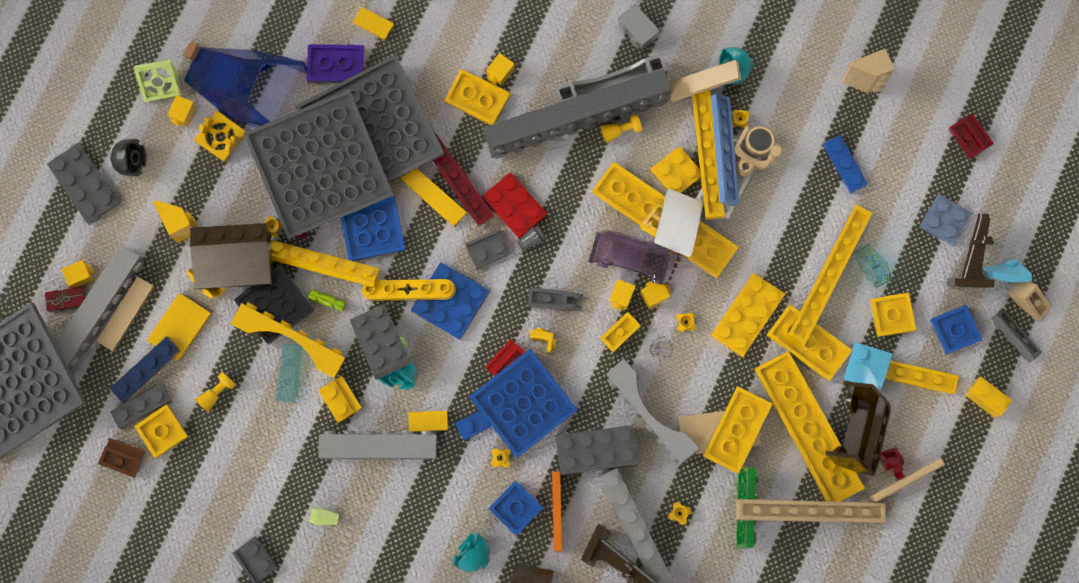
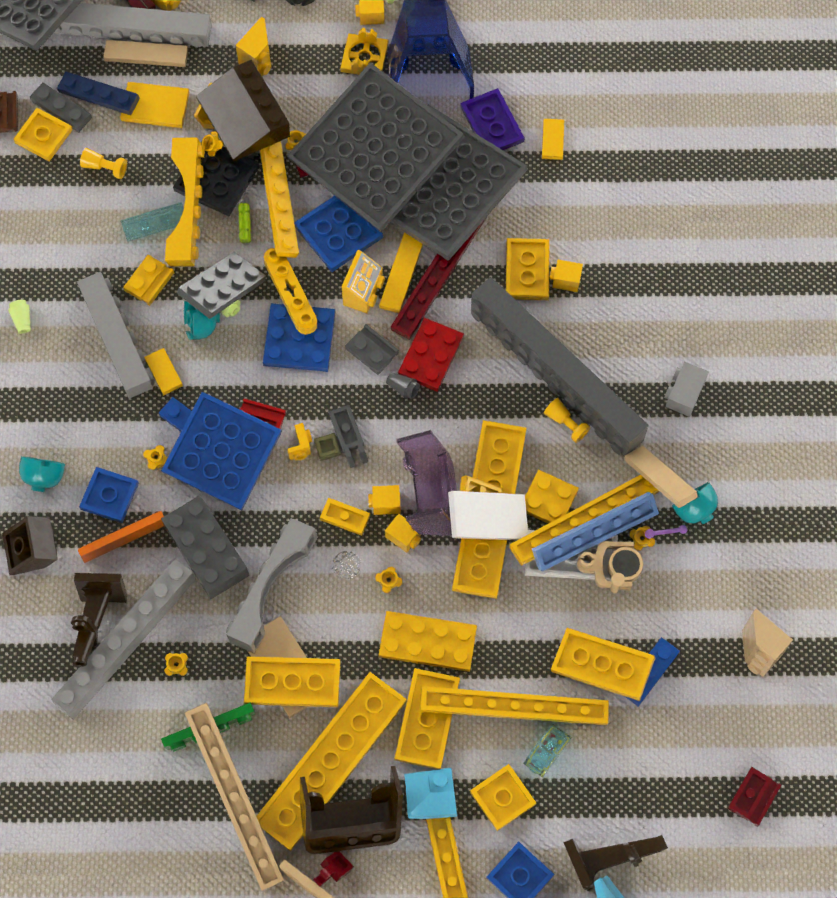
camera: 60 degrees right, 10 degrees down
(242, 298) = (212, 143): none -> yellow plate
(429, 228) = (362, 283): none -> yellow slope
(554, 320) = (327, 447): none -> olive tile
(578, 88) = (582, 350): light grey arch -> none
(742, 111) = (650, 533): none -> medium lavender hinge
(827, 194) = (603, 664): none -> yellow plate
(945, 220) = (642, 810): sand blue plate -> none

